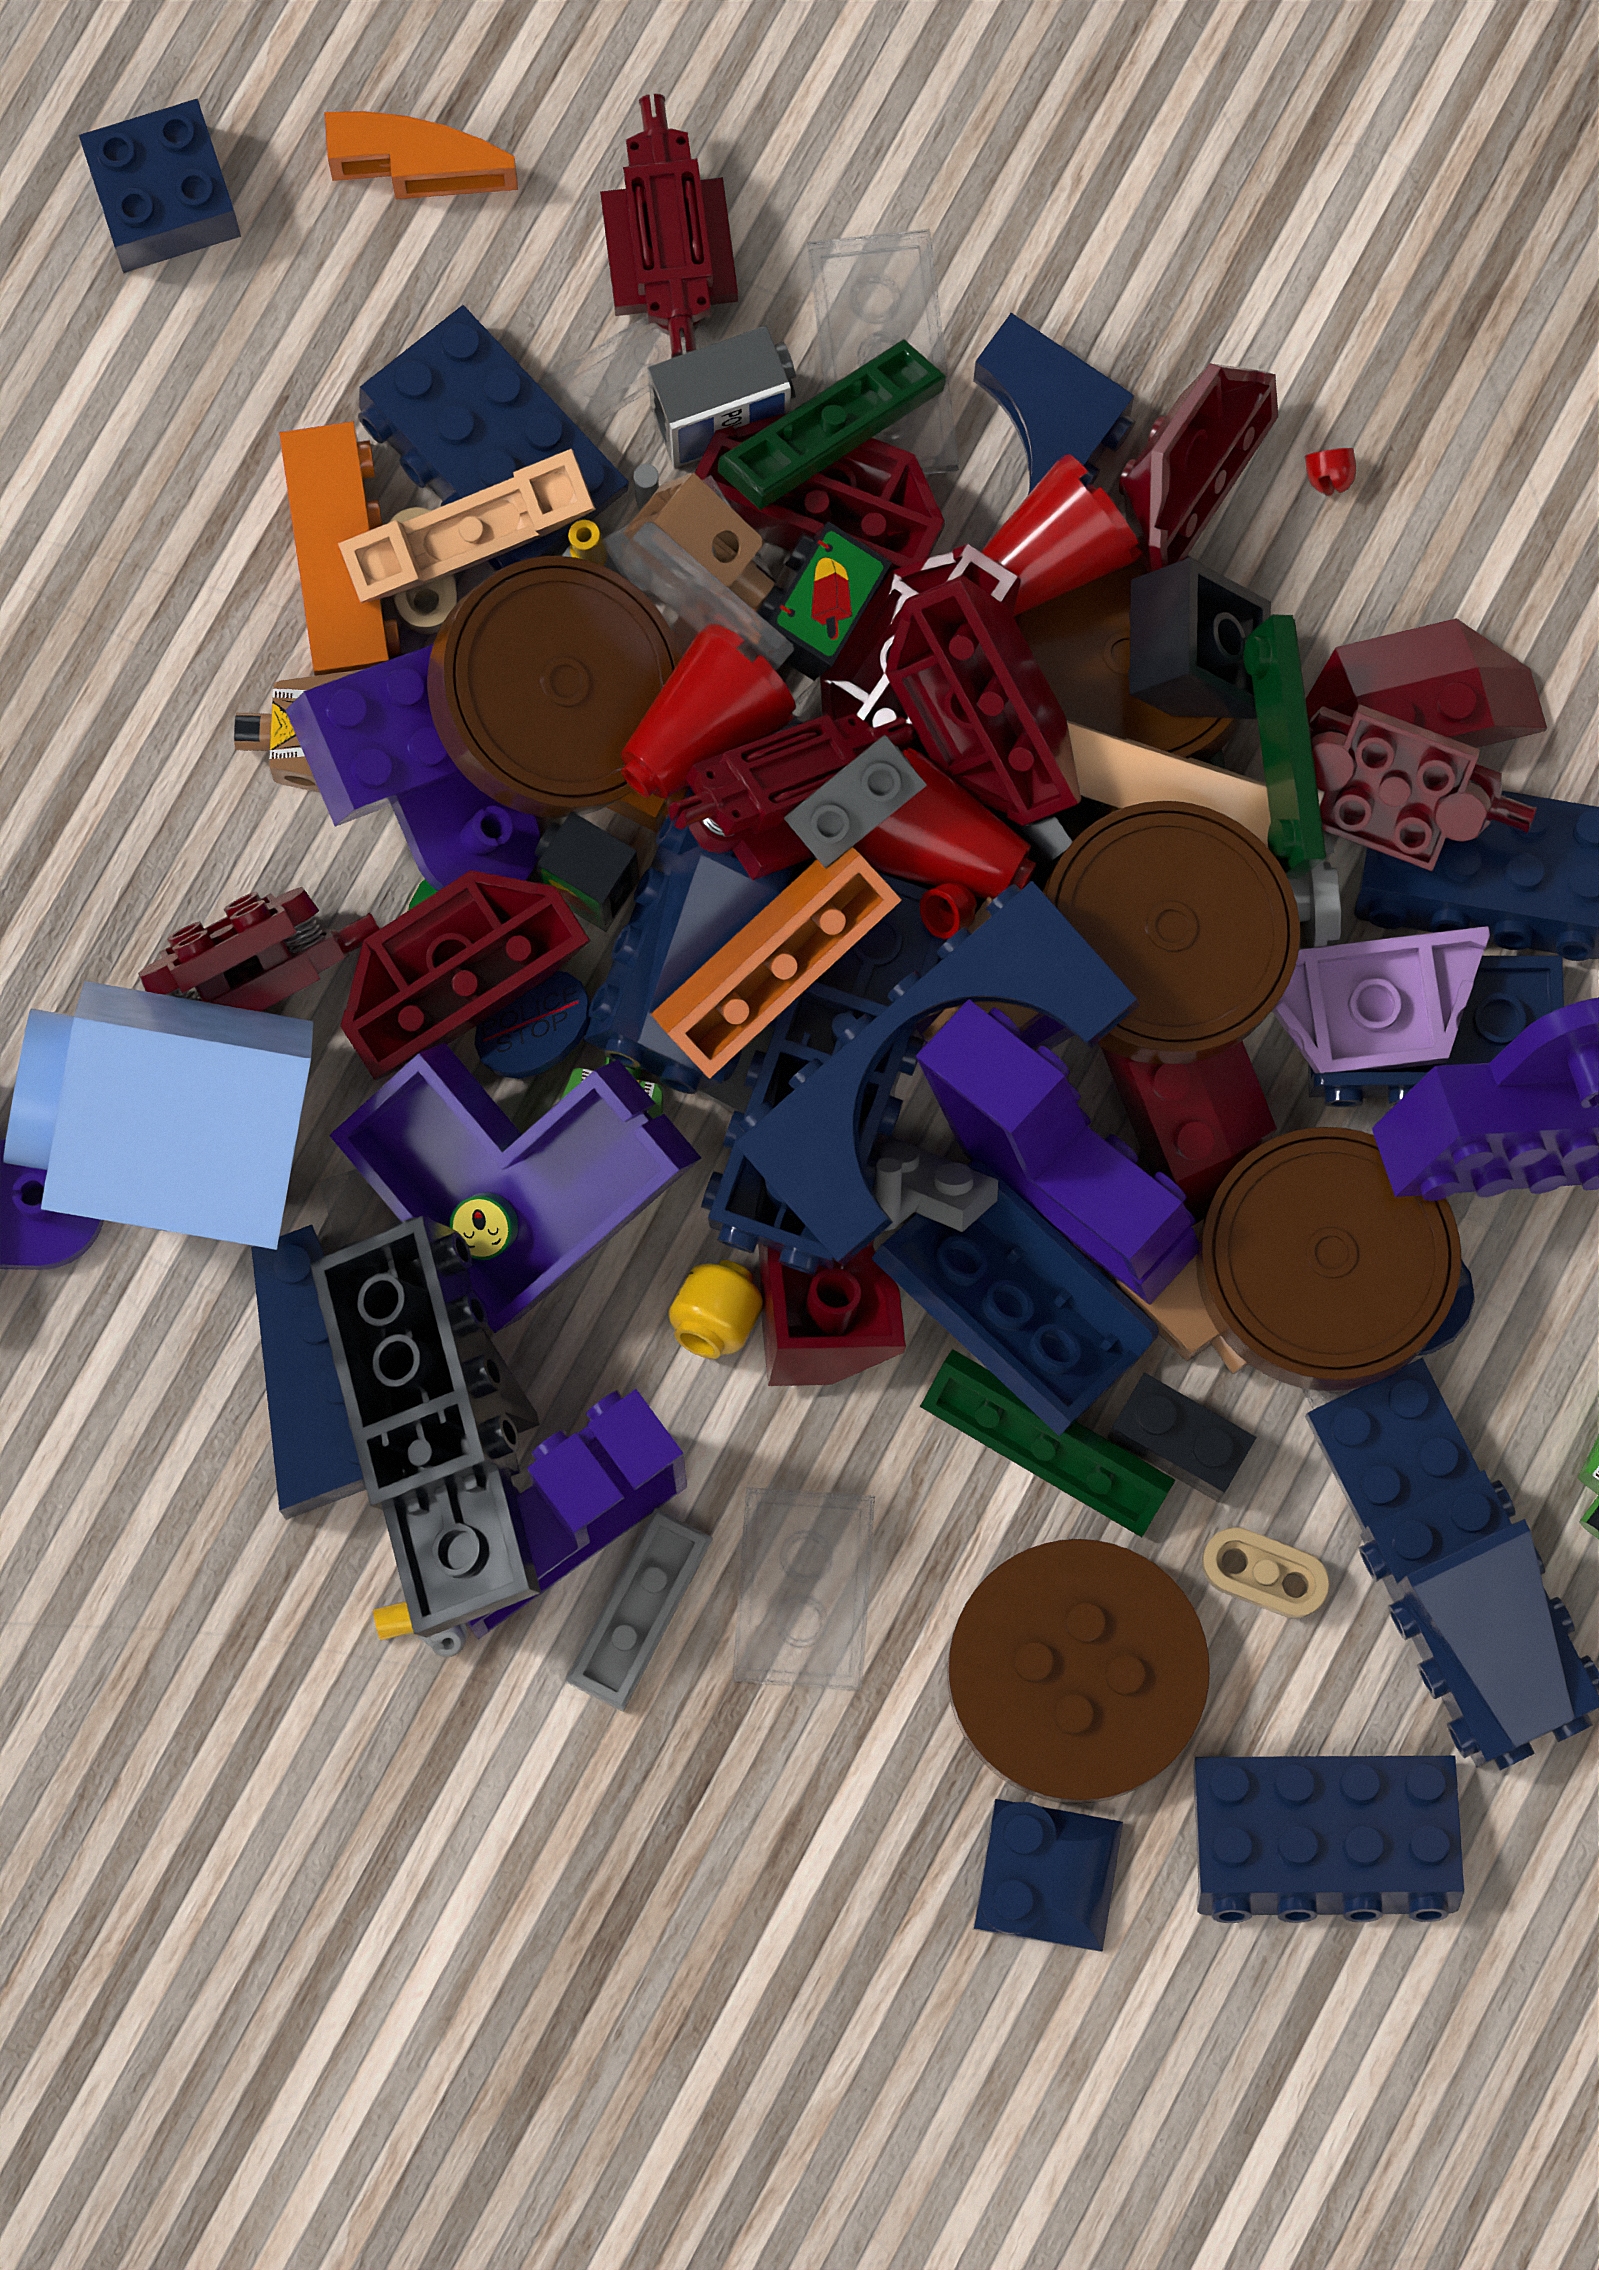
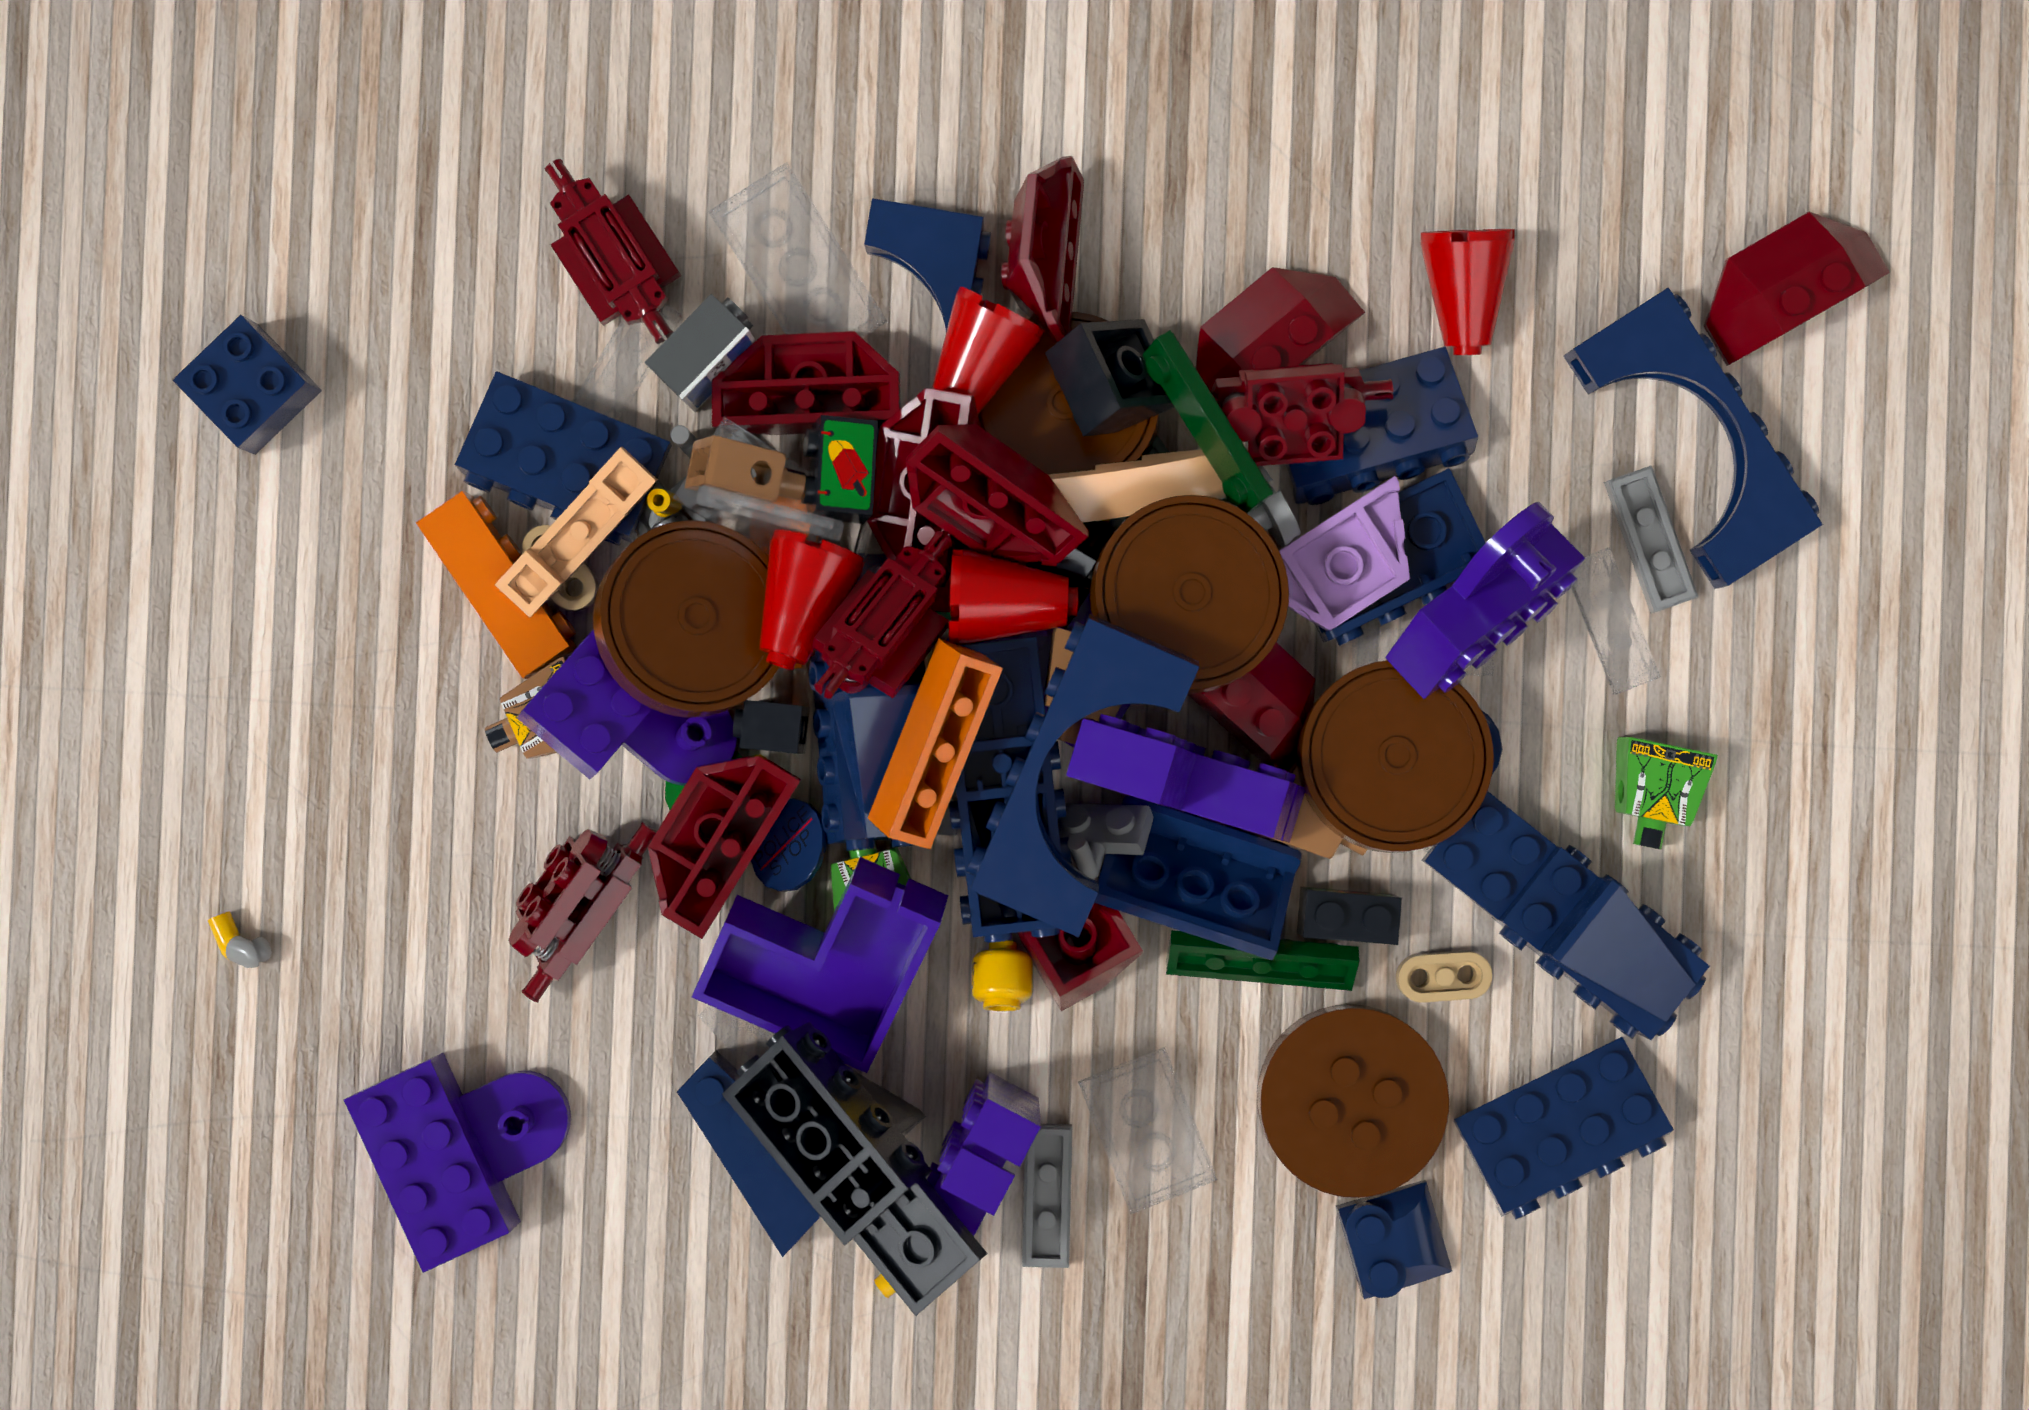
camera: 25 degrees left, 10 degrees up
(162, 1112) = (571, 1042): light blue container -> none
(416, 153) = (410, 278): orange slope -> none
(486, 1224) = (823, 1001): light yellow tile -> none
(831, 424) = (788, 338): dark green plate -> none
(855, 800) = (939, 615): dark grey hinge -> none
(949, 917) = (1034, 650): red hinge -> none
(1331, 470) = (1139, 202): red hinge -> none

